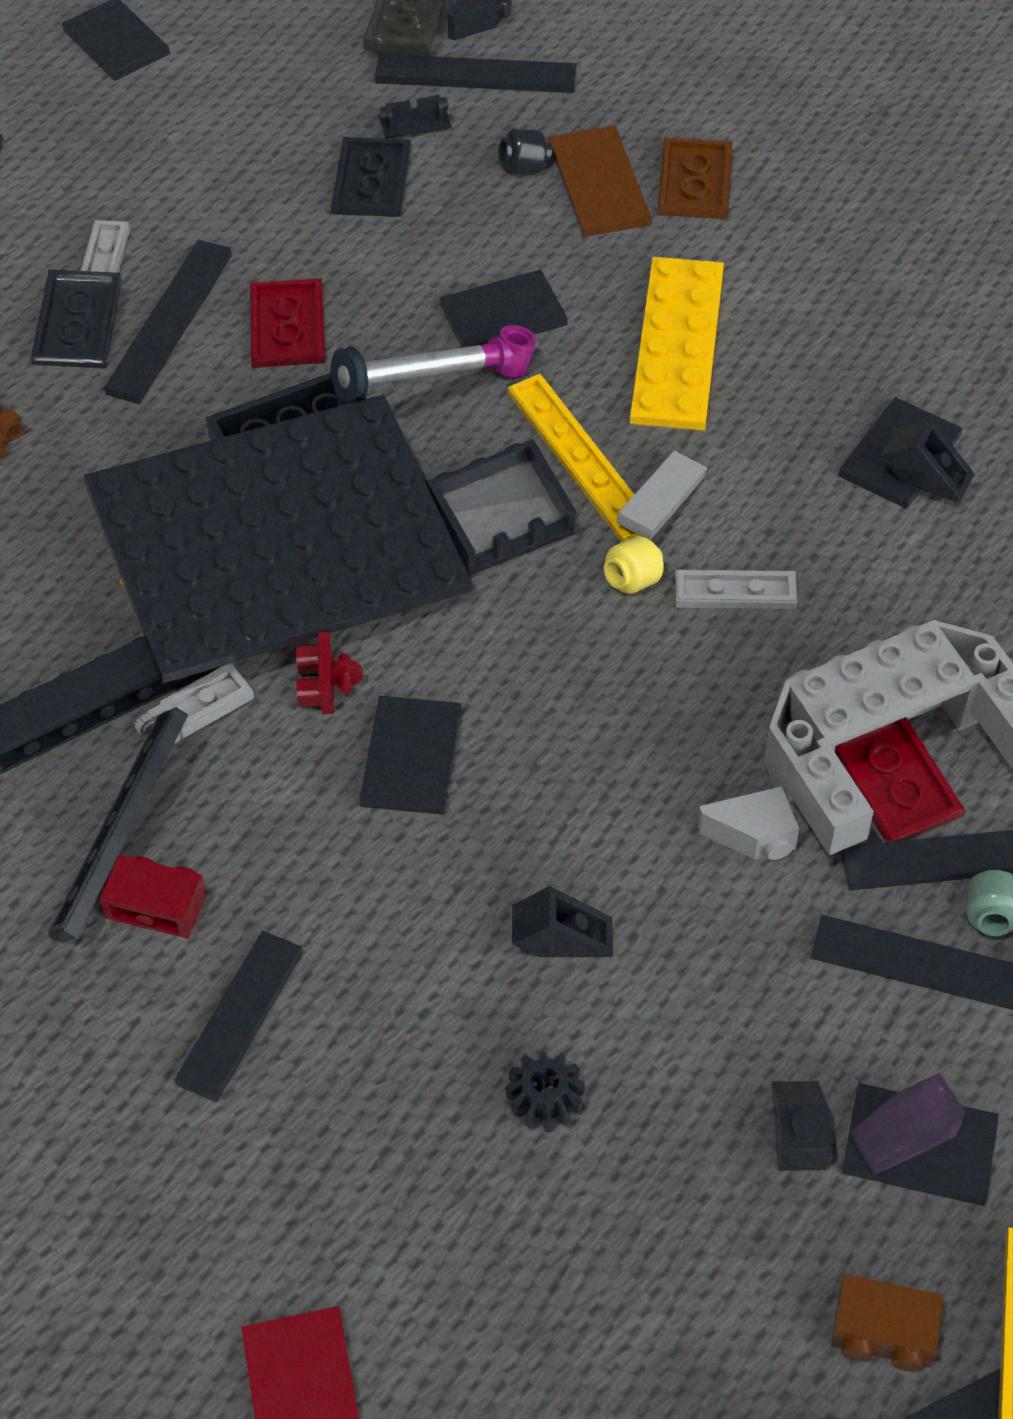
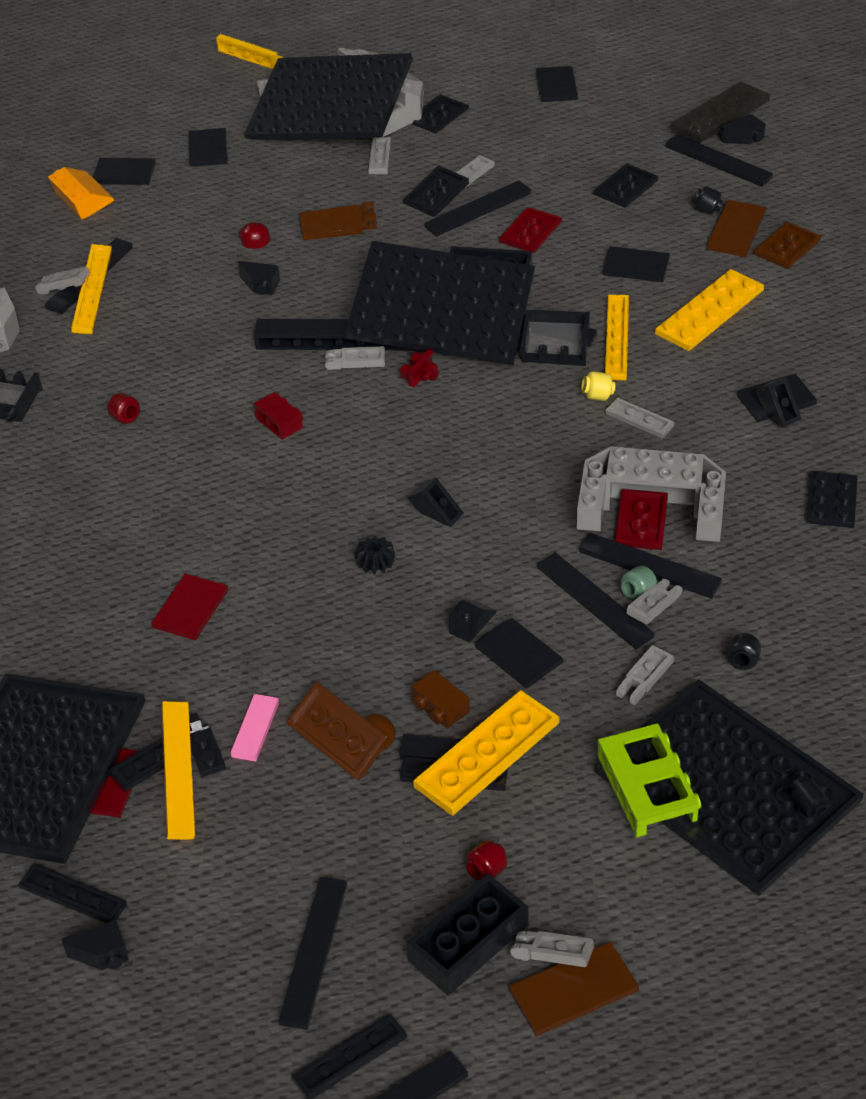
camera: 35 degrees right, 10 degrees down
(117, 826) = (286, 381): black tile -> none
(238, 1016) = (277, 474): black tile -> none
(400, 120) = (677, 168): black hinge -> none
(411, 755) = (432, 415): black tile -> none
(506, 354) = (618, 278): piece -> none
(661, 495) = (638, 365): light grey tile -> none
(752, 824) = (556, 504): light grey slope -> none
(909, 1124) = (515, 636): clear purple slope -> none

